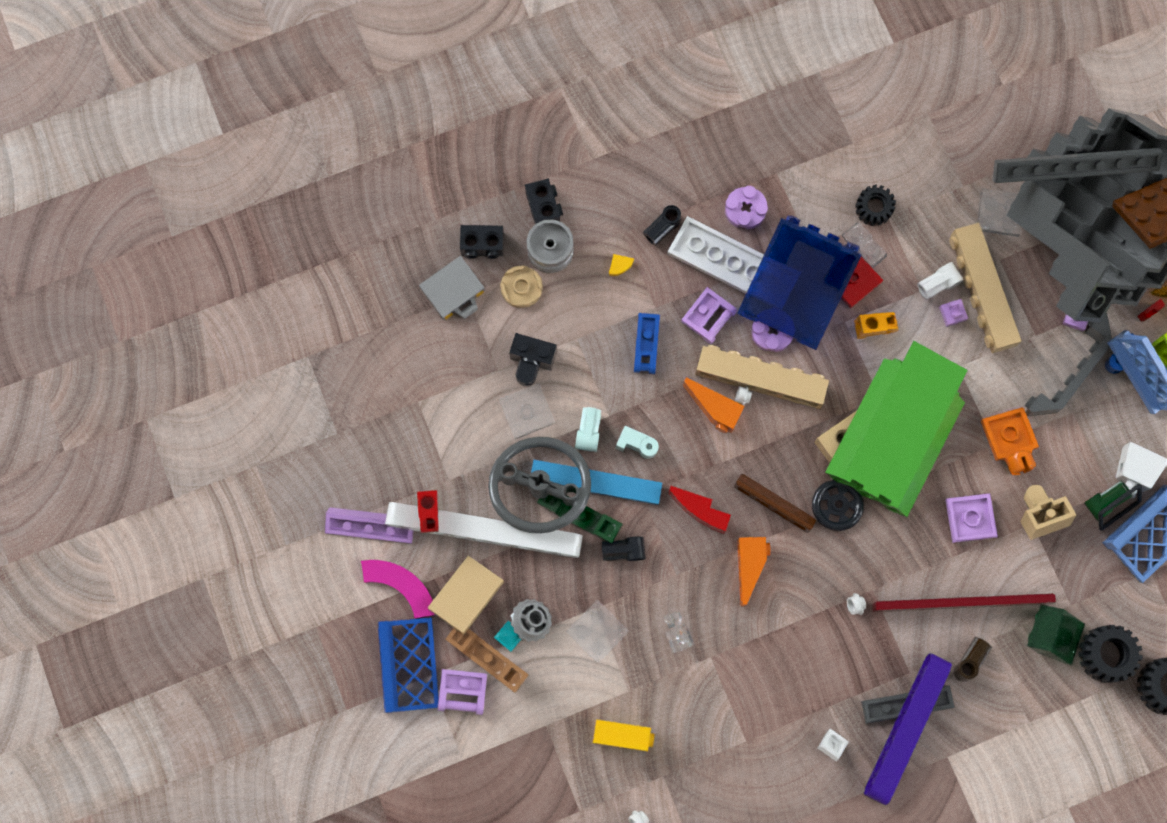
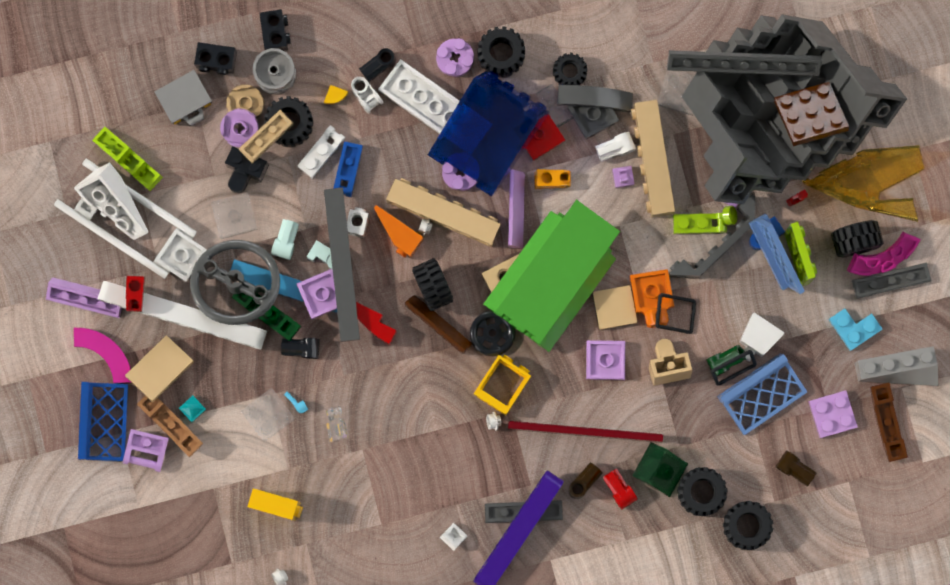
camera: 10 degrees right, 5 degrees up
(385, 406) = (110, 195): none -> white wedge
(398, 363) = (127, 158): none -> lime slope
(469, 463) = (177, 254): none -> white plate
(511, 304) = (235, 117): none -> lavender plate
(531, 620) = (212, 397): light grey piece -> none
(552, 316) = (266, 136): none -> tan tile
(577, 282) = (299, 108): none -> black tyre
(613, 329) = (321, 152): none -> white plate
(633, 617) = (300, 407): none -> medium azure hand
(639, 485) = (319, 294): none -> lavender plate
(658, 262) = (368, 96): none -> white piece
(658, 449) = (341, 264): none -> dark grey tile
(663, 409) = (358, 231): none -> white brick
(703, 310) = (401, 147): lavender plate -> none
(751, 560) = (409, 372): orange slope -> none
(765, 457) = (432, 284): none -> black tyre
(802, 178) = (501, 36): none -> black tyre
(840, 363) = (516, 209): none -> lavender slope
(850, 581) = (485, 397): none -> yellow window
(908, 229) = (595, 97): none -> dark grey slope
(909, 248) = (592, 119): none -> dark grey plate
(970, 458) = (614, 307): none -> tan tile
(1018, 668) = (621, 491): none -> red piece
(1025, 457) = (673, 328): none -> black piece
(1047, 352) = (698, 223): none -> lime plate
(1080, 338) = (729, 215): none -> lime tile

